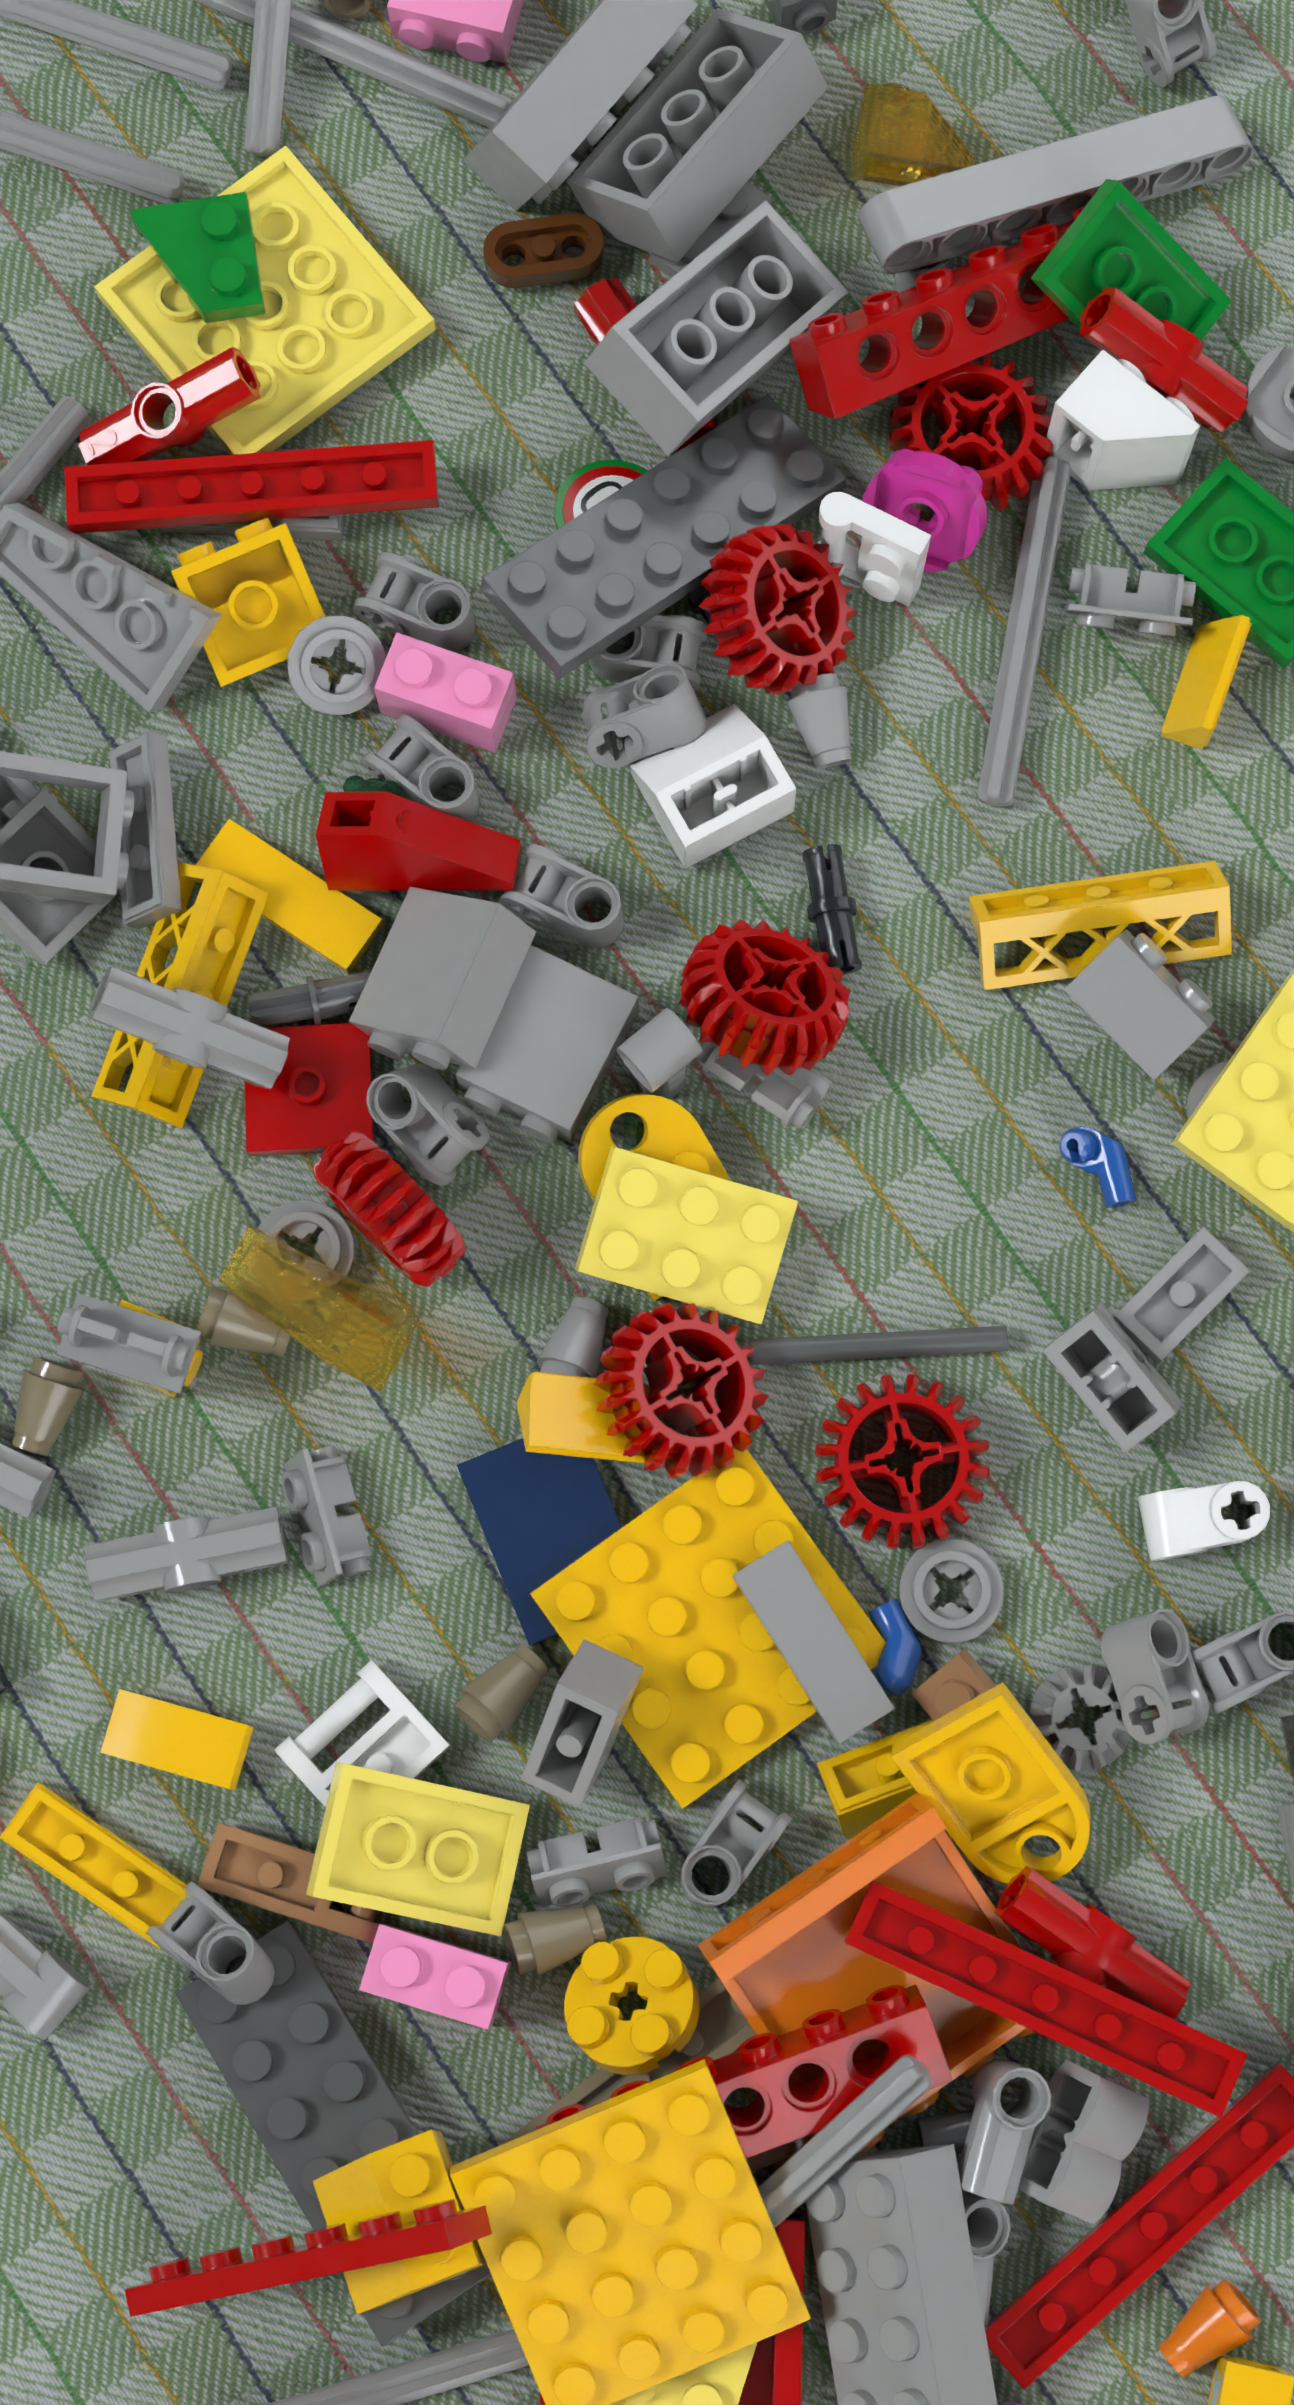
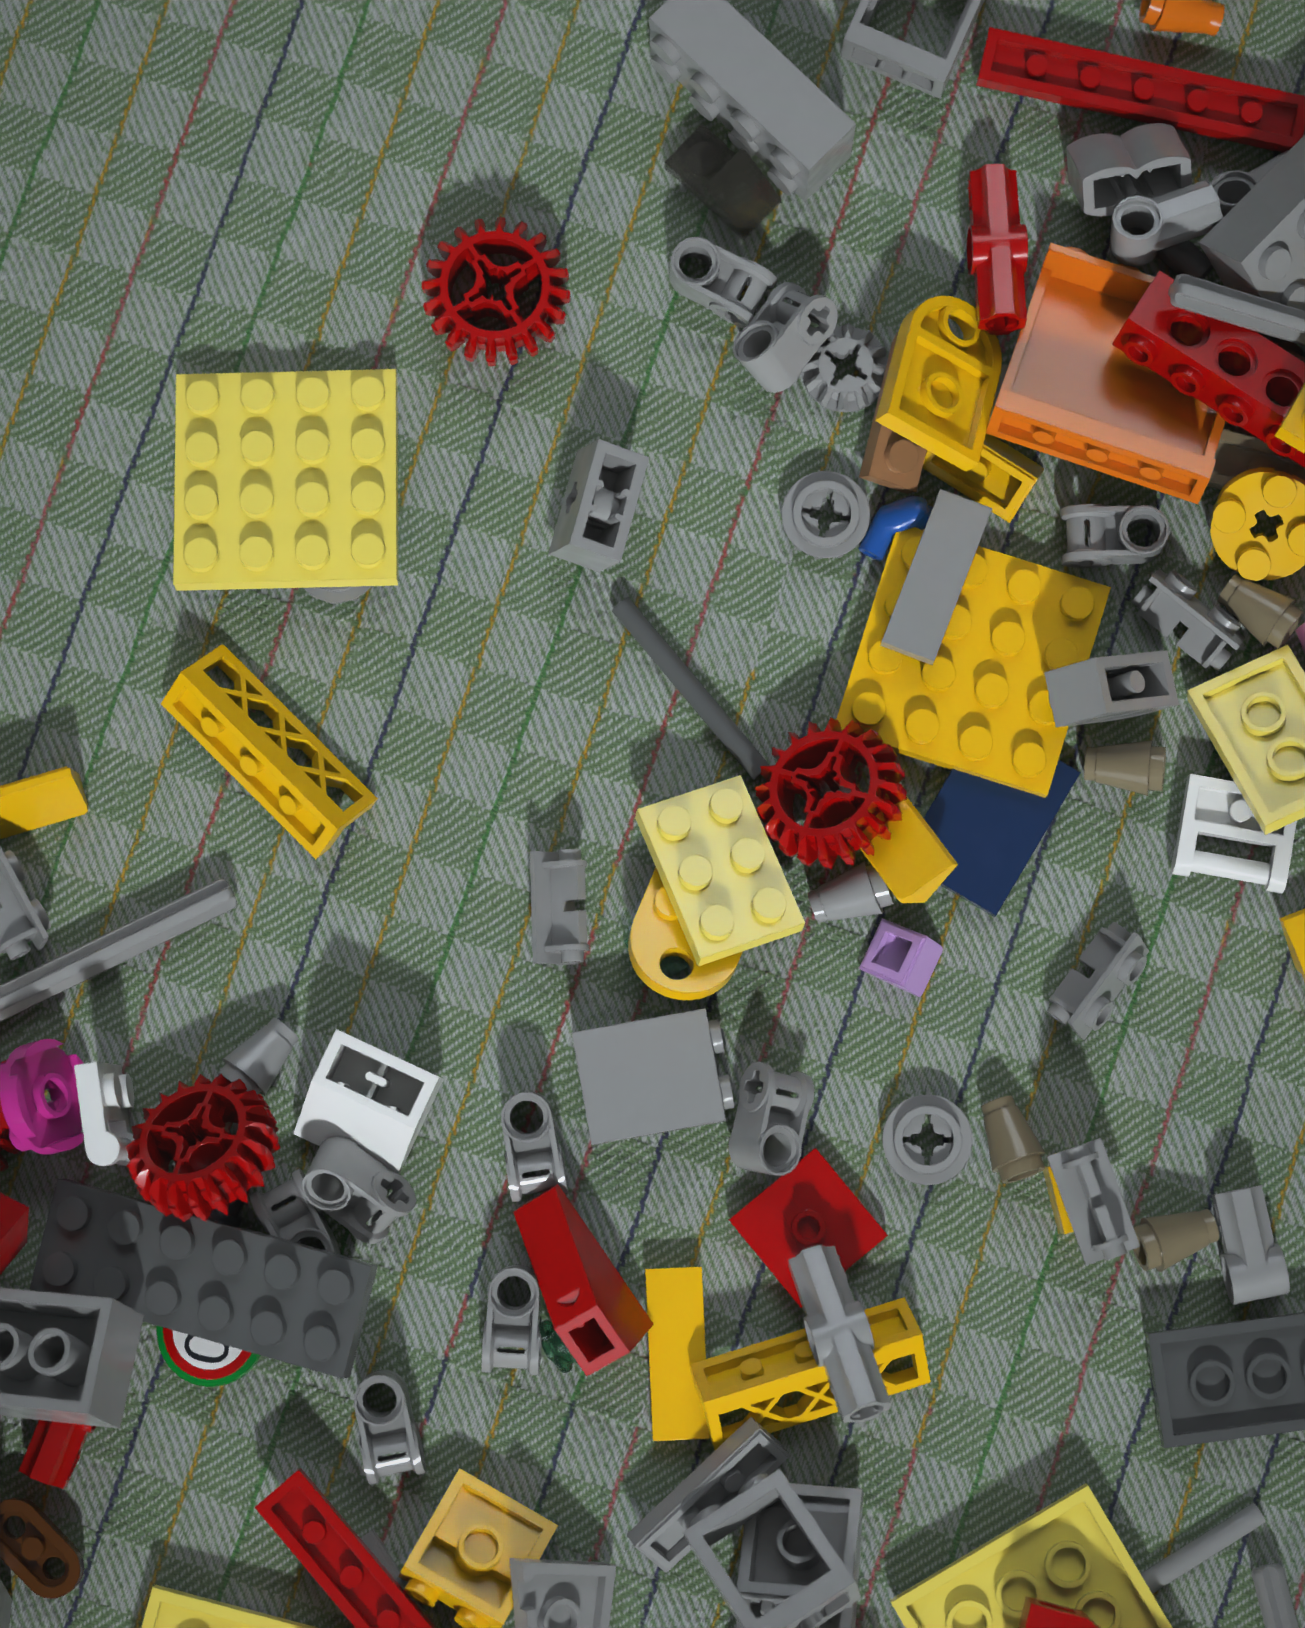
camera: 125 degrees left, 5 degrees up
(186, 1554) = (1200, 1055): light grey piece -> none
(308, 1001) = (742, 1272): dark grey axle -> none
(311, 681) = (485, 1427): light grey gear -> none
(320, 1307) = (962, 1087): clear yellow slope -> none
(389, 1208) = (858, 1093): red gear -> none
(442, 978) = (664, 1183): light grey brick -> none
(446, 692) = (441, 1351): bright pink brick -> none
(484, 1353) = (901, 957): none -> lavender slope
(660, 1054) = (604, 982): light grey piece -> none
(764, 997) = (529, 918): red gear -> none
(832, 907) = (398, 949): black pin -> none
(871, 1468) = (743, 590): red gear -> none
(1046, 1998) = (1059, 251): red plate -> none
(1102, 1158) = (441, 629): blue arm -> none
(1142, 1002) = (312, 675): light grey brick -> none
(1181, 1295) = (501, 504): light grey plate -> none
(1191, 1520) = (658, 387): white piece -> none

